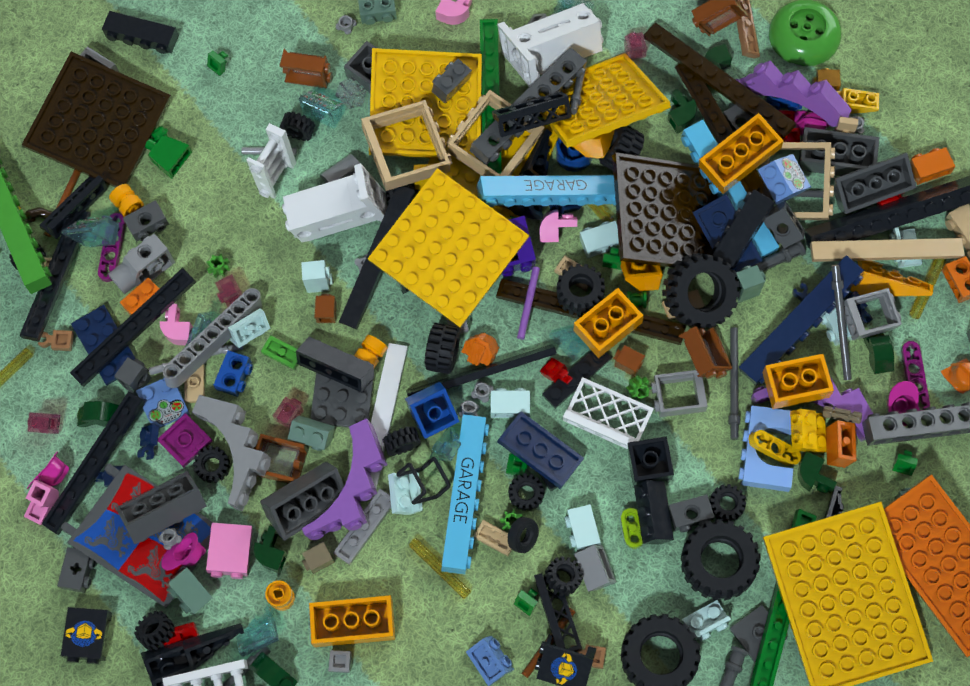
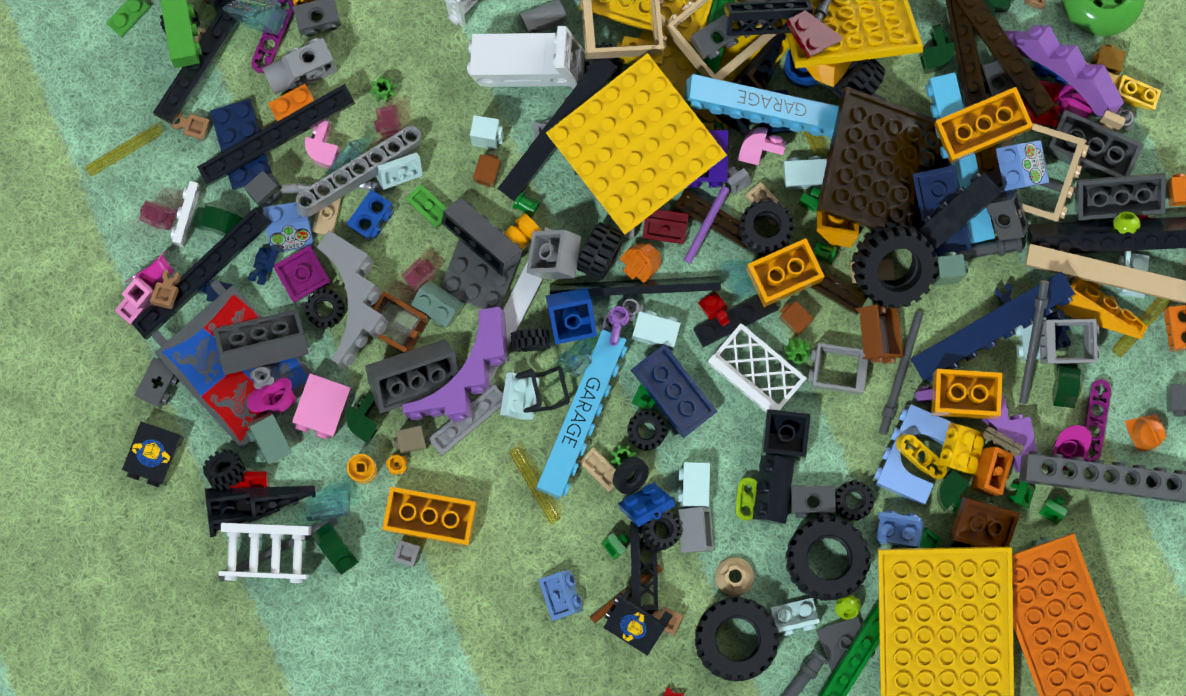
camera: 10 degrees right, 10 degrees up
(66, 486) = (166, 292): none -> medium nougat plate
(68, 416) = (185, 214): none -> white plate
(305, 583) = (390, 464): none -> light orange plate
(367, 328) = (526, 205): none -> green bush
(402, 361) = (553, 254): none -> light grey brick
(474, 401) = (617, 317): none -> medium lavender plate
(493, 313) = (666, 226): none -> dark red plate
(542, 557) = (645, 503): none -> blue plate
(545, 259) = (737, 180): none -> light grey tile
(573, 115) = (812, 34): none -> wing
(634, 608) = (722, 576): none -> tan piece
(751, 599) = (847, 607): none -> lime plate
(775, 516) = (899, 529): none -> medium blue bracket
(848, 490) = (984, 524): none -> reddish brown plate
(875, 457) = (1024, 494): none -> green tile
(887, 202) = (1126, 222): none -> lime plate

